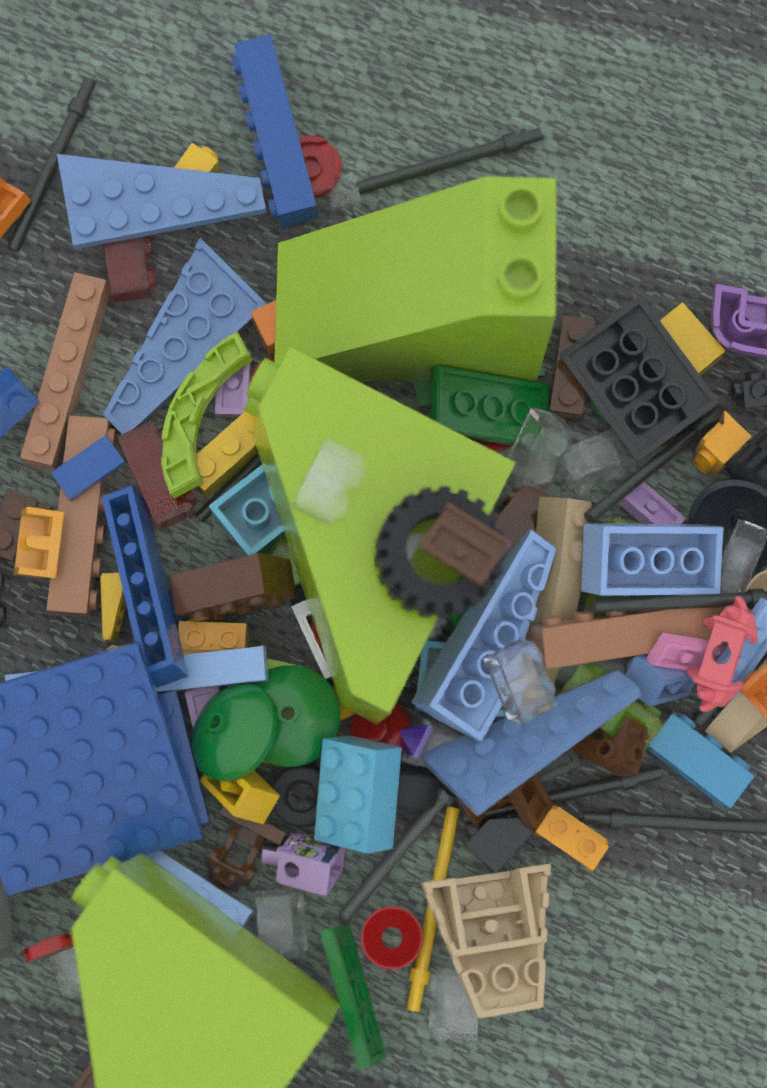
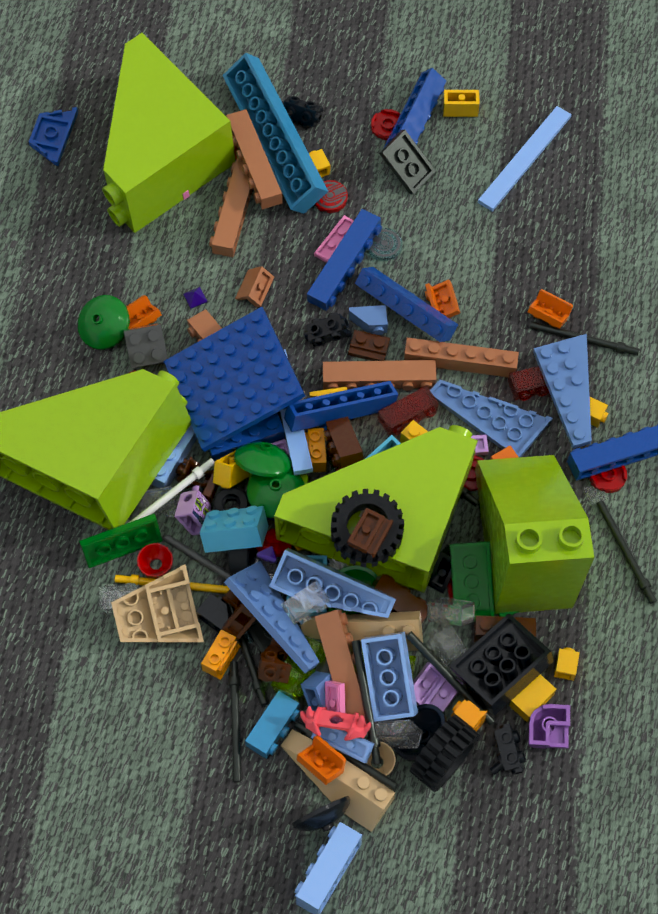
camera: 80 degrees right, 15 degrees down
(38, 543) = (359, 352): light orange window -> none
(88, 468) = (405, 372): blue tile -> none
(188, 408) = (444, 418): lime tile -> none
(242, 850) = (197, 473): none -> white bar
(329, 481) = (400, 465): clear brick -> none
(635, 279) = (566, 664): none -> yellow brick
(673, 485) = (442, 695): none -> lavender plate

